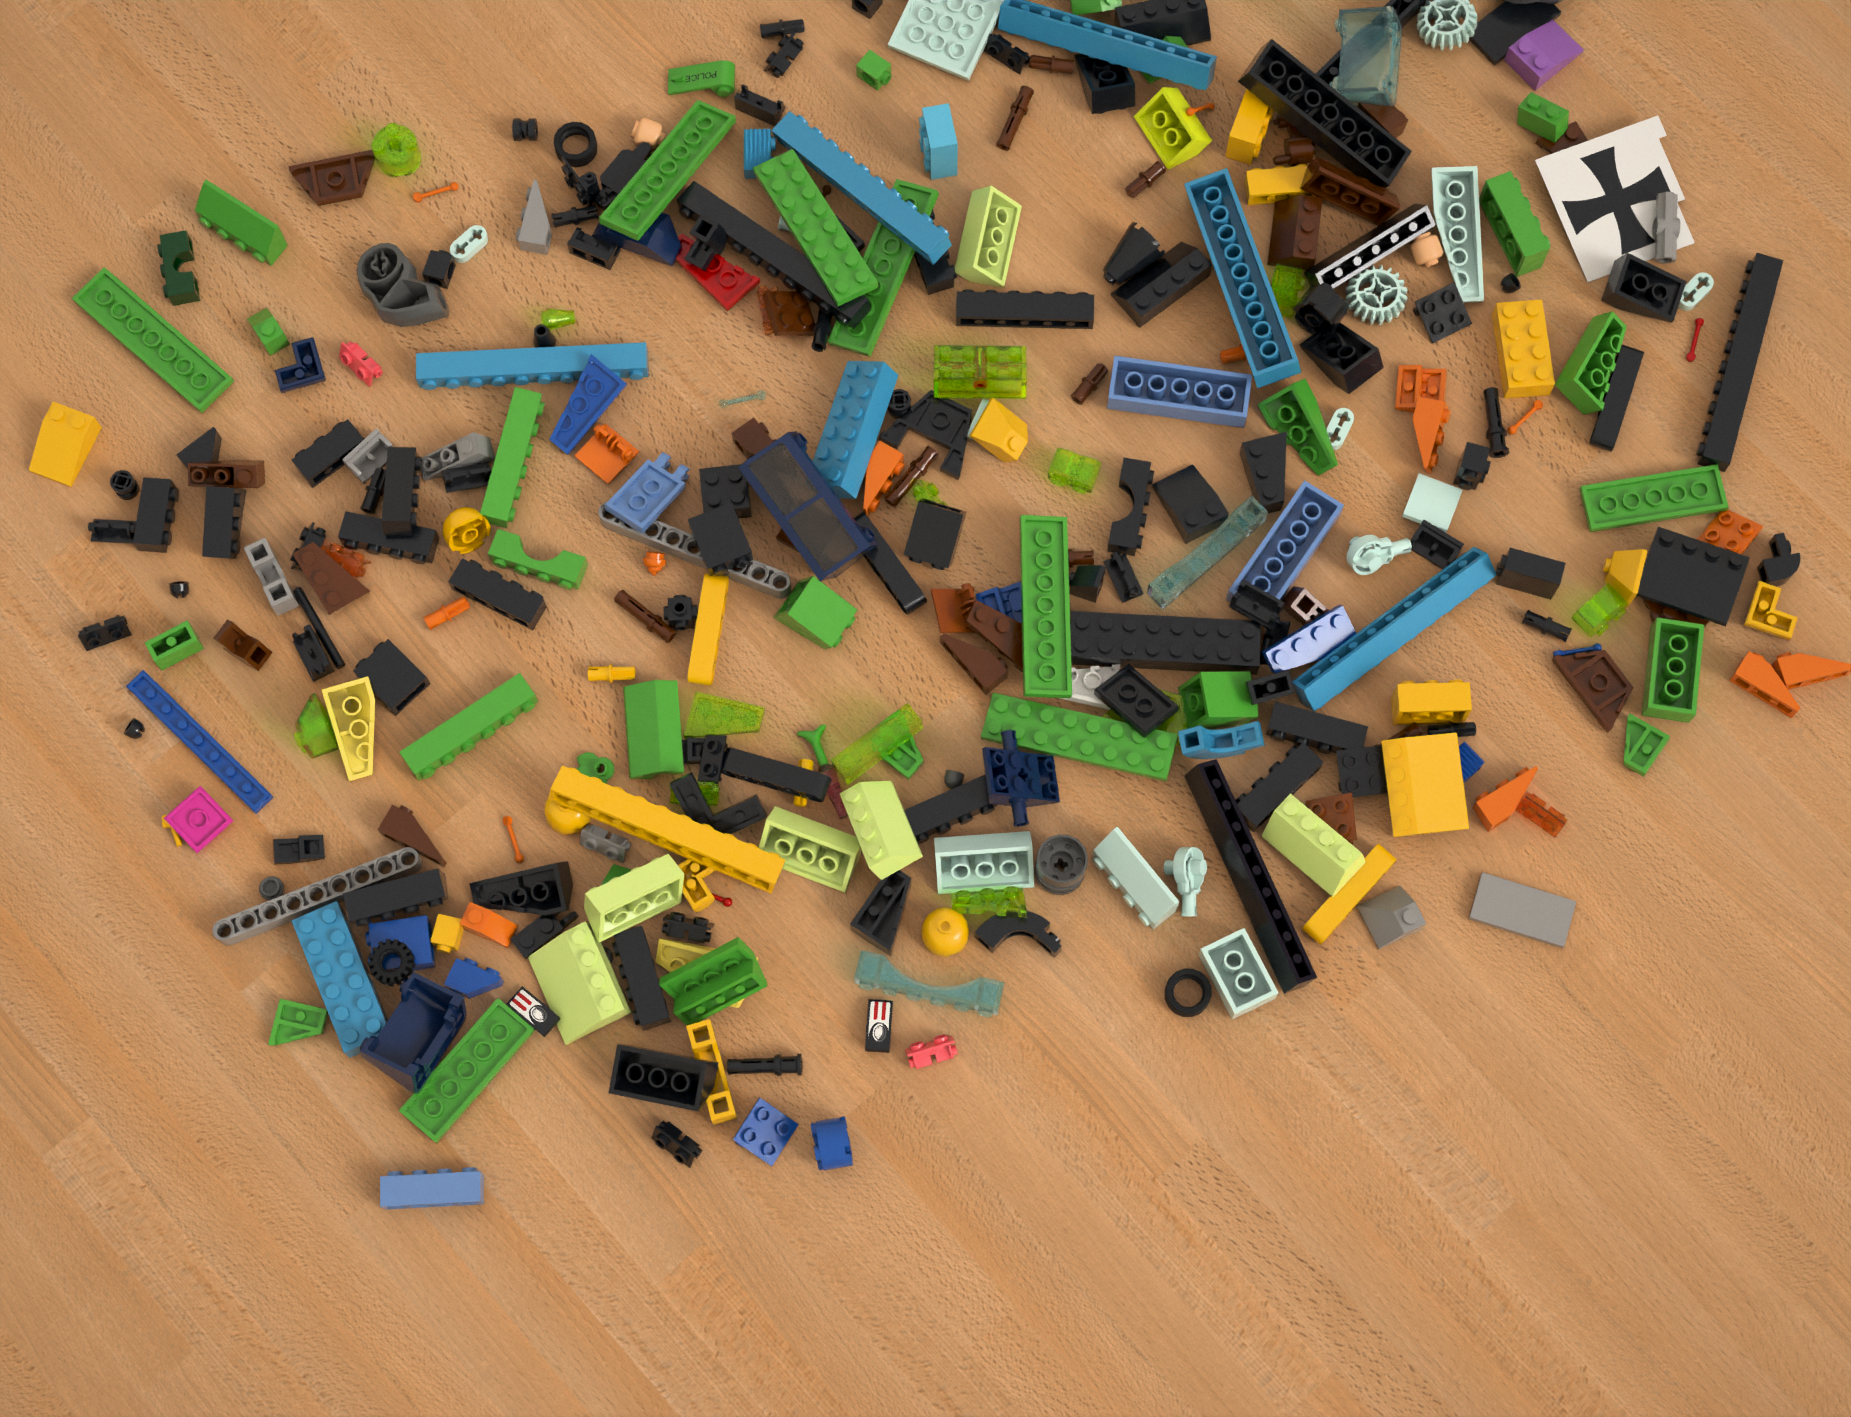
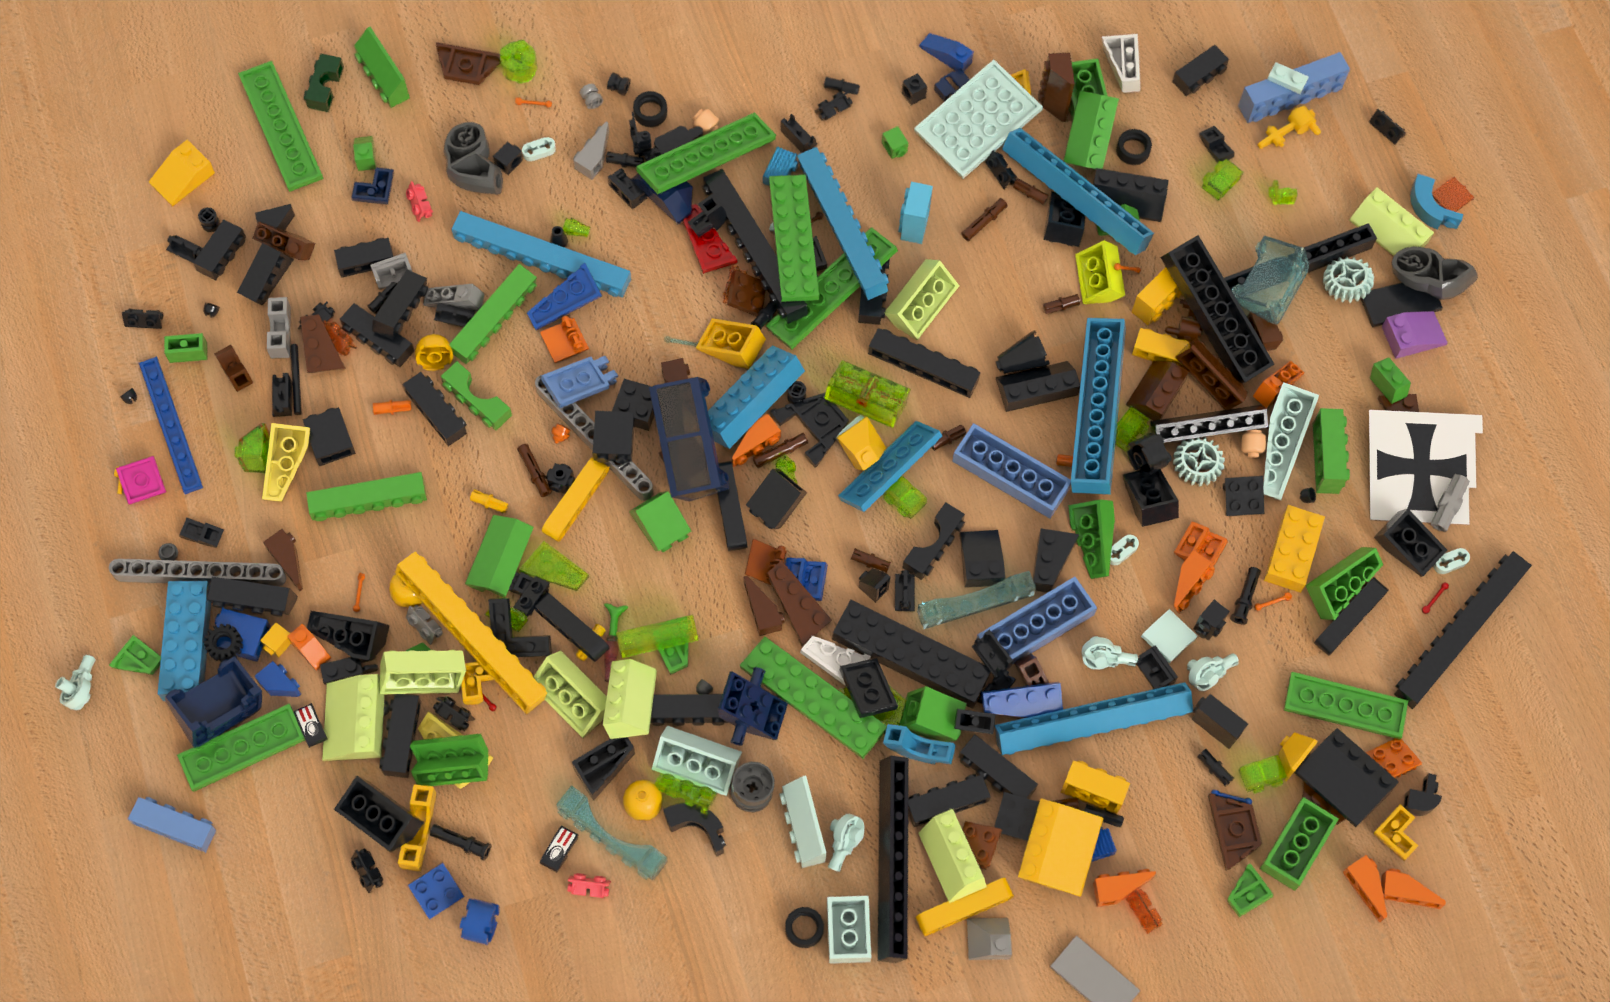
camera: 20 degrees right, 5 degrees down
(245, 1083) = (76, 691): none -> light aqua pin
(500, 157) = (591, 97): none -> light grey wheel
(590, 765) = (440, 563): bright green plate -> none
(713, 75) = (774, 99): bright green door -> none
(798, 376) = (732, 342): none -> yellow slope
(1045, 607) = (832, 588): bright green plate -> none
(1046, 438) = (890, 466): none -> dark azure plate
(1420, 175) = (1270, 388): none -> orange slope
(1493, 522) = (1205, 678): none -> light aqua pin

